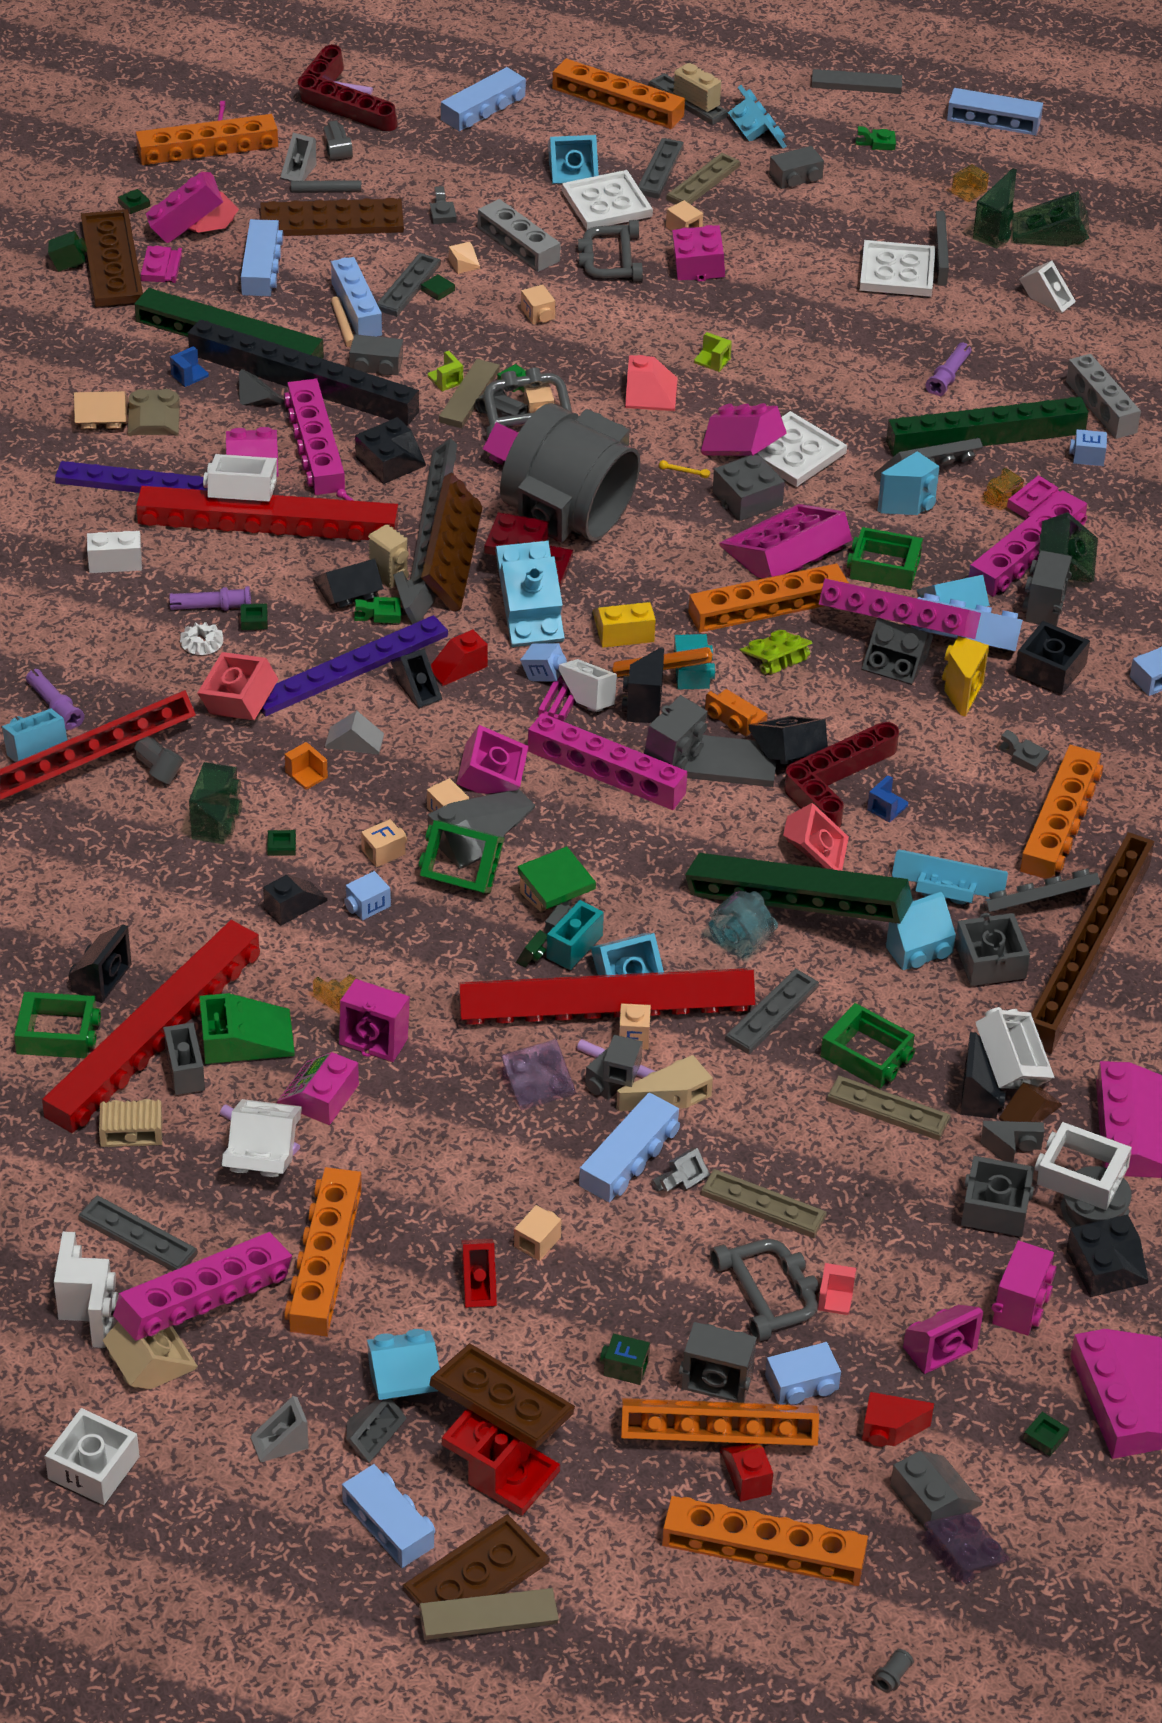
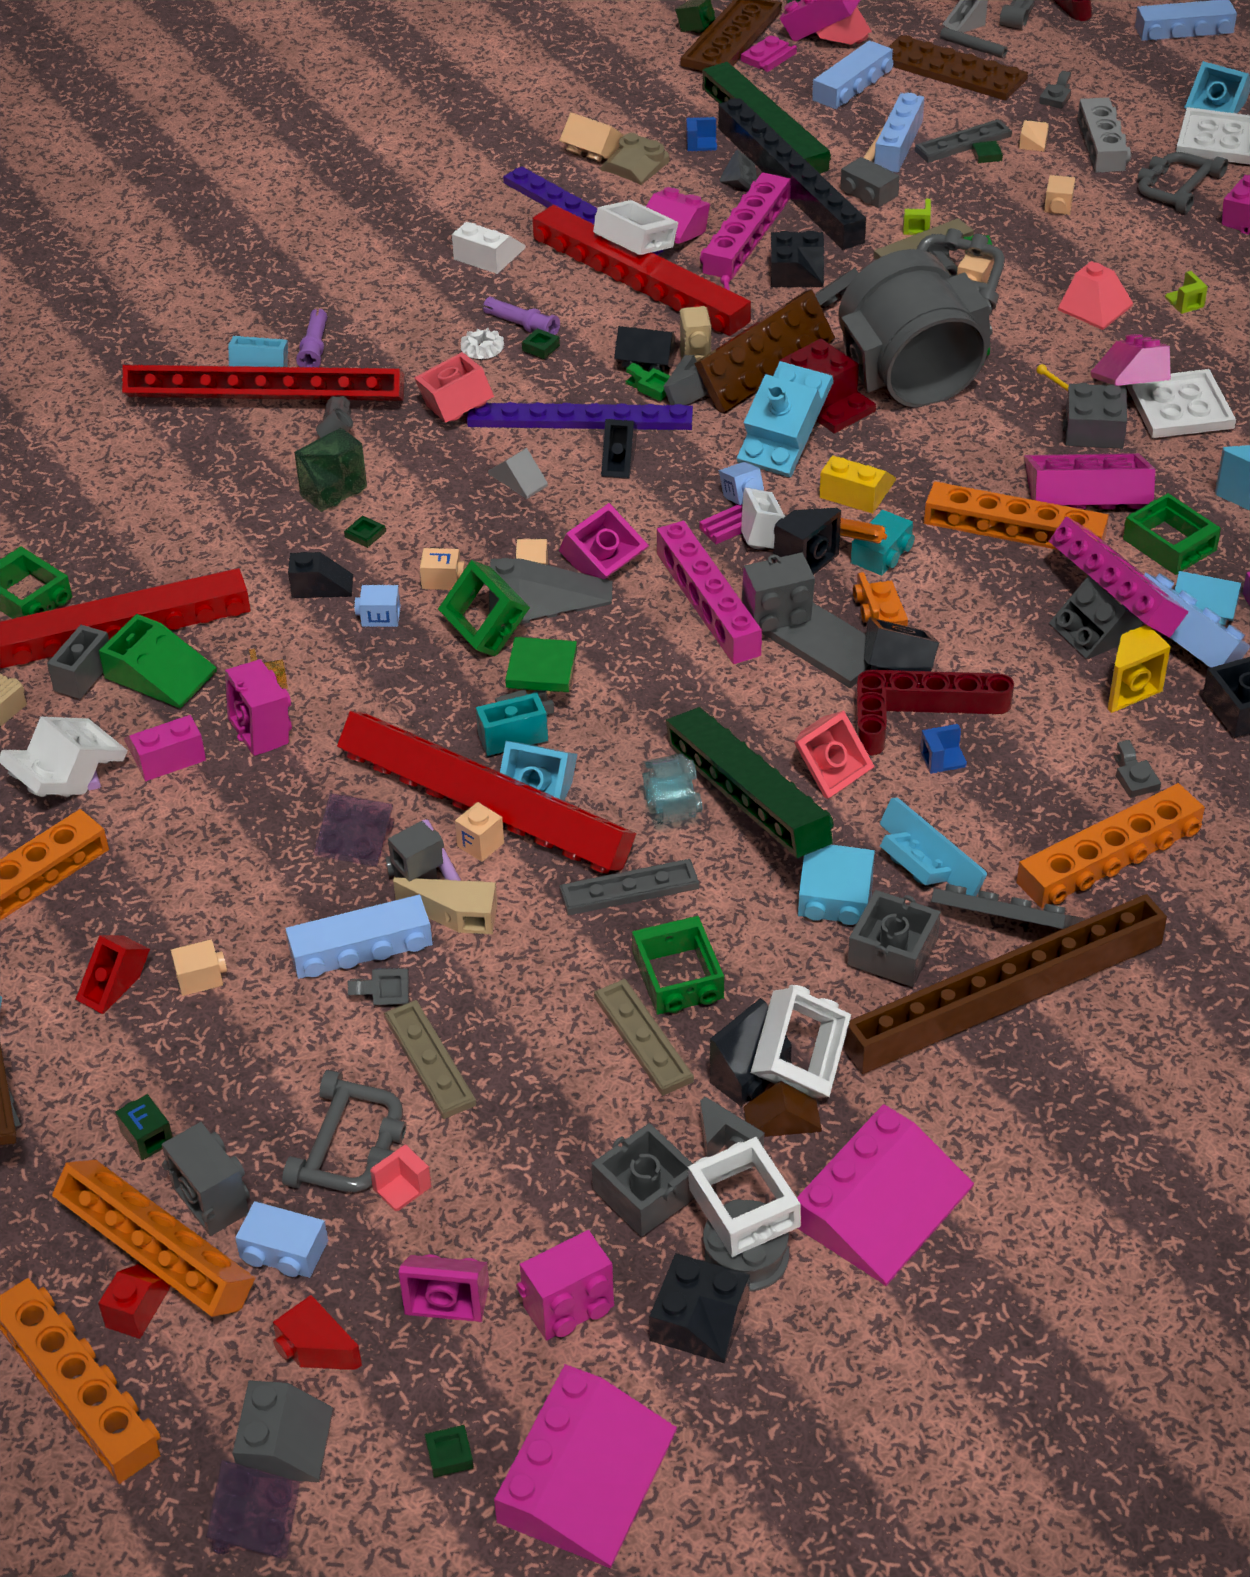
camera: 40 degrees right, 0 degrees up
(102, 964) = (107, 557): black slope -> none
(306, 765) = (447, 477): orange panel -> none
(460, 658) = (674, 449): red slope -> none
(533, 950) = (464, 720): dark green plate -> none
(778, 651) = (964, 563): lime hinge -> none

